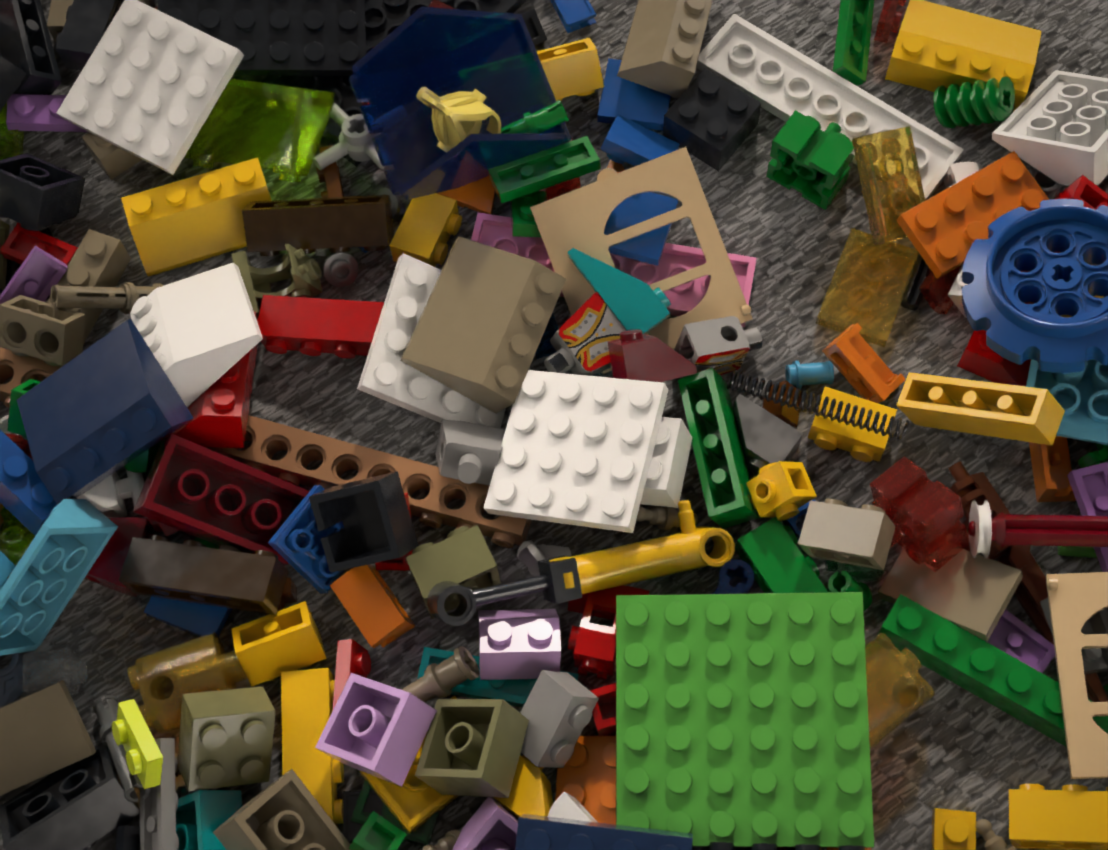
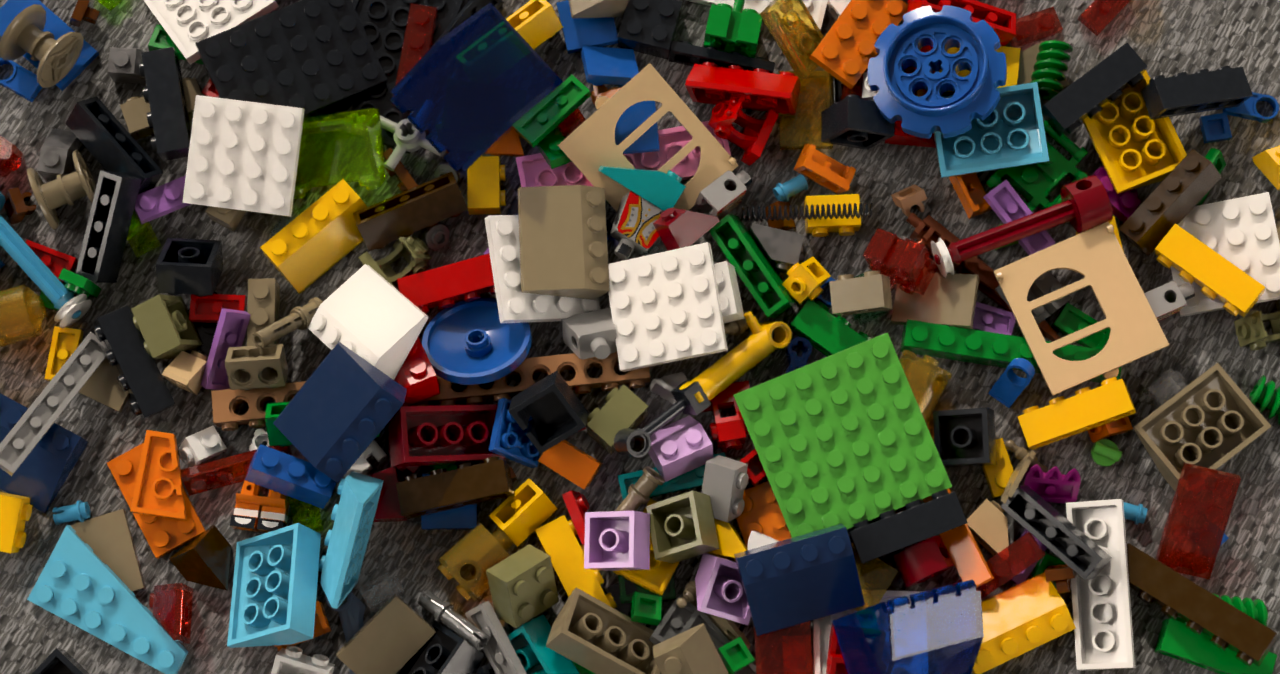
camera: 30 degrees left, 10 degrees up
(141, 749) = (470, 612): neon yellow plate -> none
(316, 407) = (472, 345): none -> blue dish
(458, 115) = (482, 101): light yellow helmet -> none
(539, 120) = (532, 83): green pin -> none
(784, 193) = (688, 54): none -> black plate
(793, 286) = (755, 131): none -> red tile
(797, 230) = (759, 87): none -> red slope
(845, 583) = (873, 328): green pin -> none
(922, 787) = (965, 437): none -> black brick
(927, 320) = (855, 123): none -> black brick
(961, 443) = (908, 197): none -> medium nougat tile
(981, 408) = (913, 175): yellow brick -> none
(1013, 742) = (1010, 385): none -> blue piece

